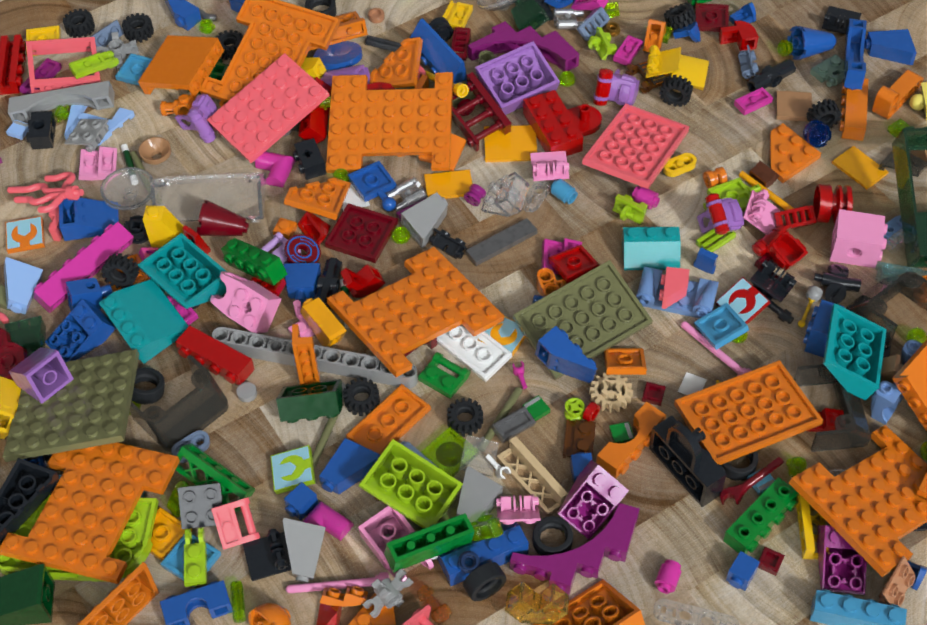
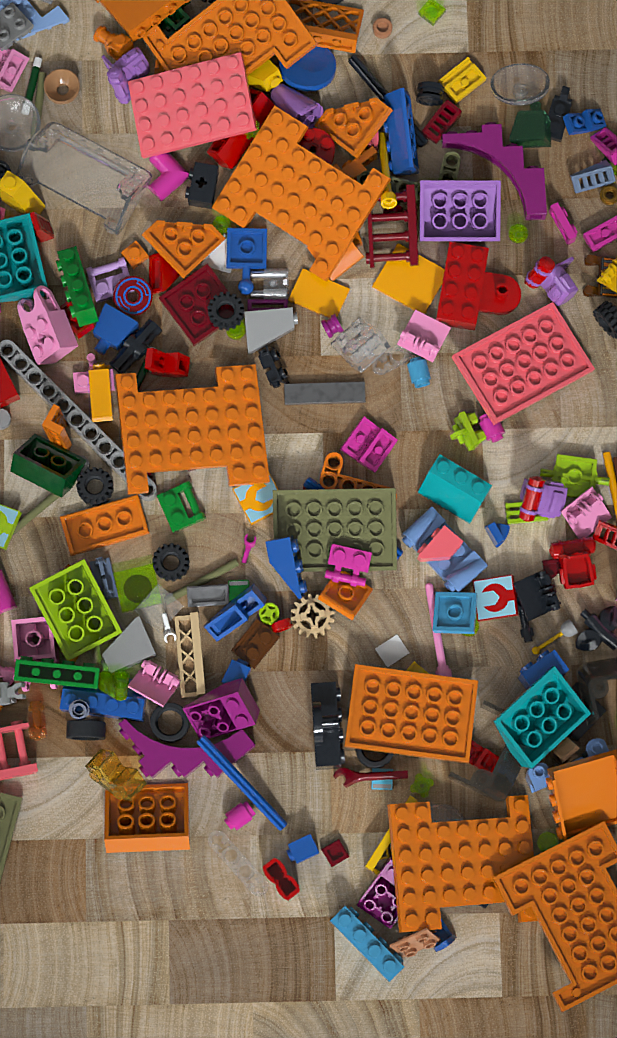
camera: 30 degrees right, 25 degrees up
(220, 221) = (76, 215): dark red cone -> none
(347, 466) = (41, 551): blue slope -> none
(384, 213) = (226, 323): none -> black tyre
(475, 355) = (222, 505): white tile -> none
(546, 422) = (236, 612): none -> blue slope
(566, 18) = (571, 152): clear piece -> none
(573, 263) = (368, 465): red tile -> none
(593, 57) = (560, 218): none -> dark pink plate
(601, 43) = (581, 207): lime hips -> none
(609, 331) = (348, 558): none -> dark pink plate
(617, 456) = (272, 683): orange arch -> none
(621, 432) = (295, 660): green tile -> none
(651, 544) = (241, 782): none -> blue axle
(653, 393) = (351, 639): dark red tile -> none
(680, 165) = (552, 408): yellow plate -> none
(715, 177) = (574, 444): orange wheel -> none
(745, 604) = (277, 874): none -> red brick
(761, 517) = (352, 812): green brick -> none

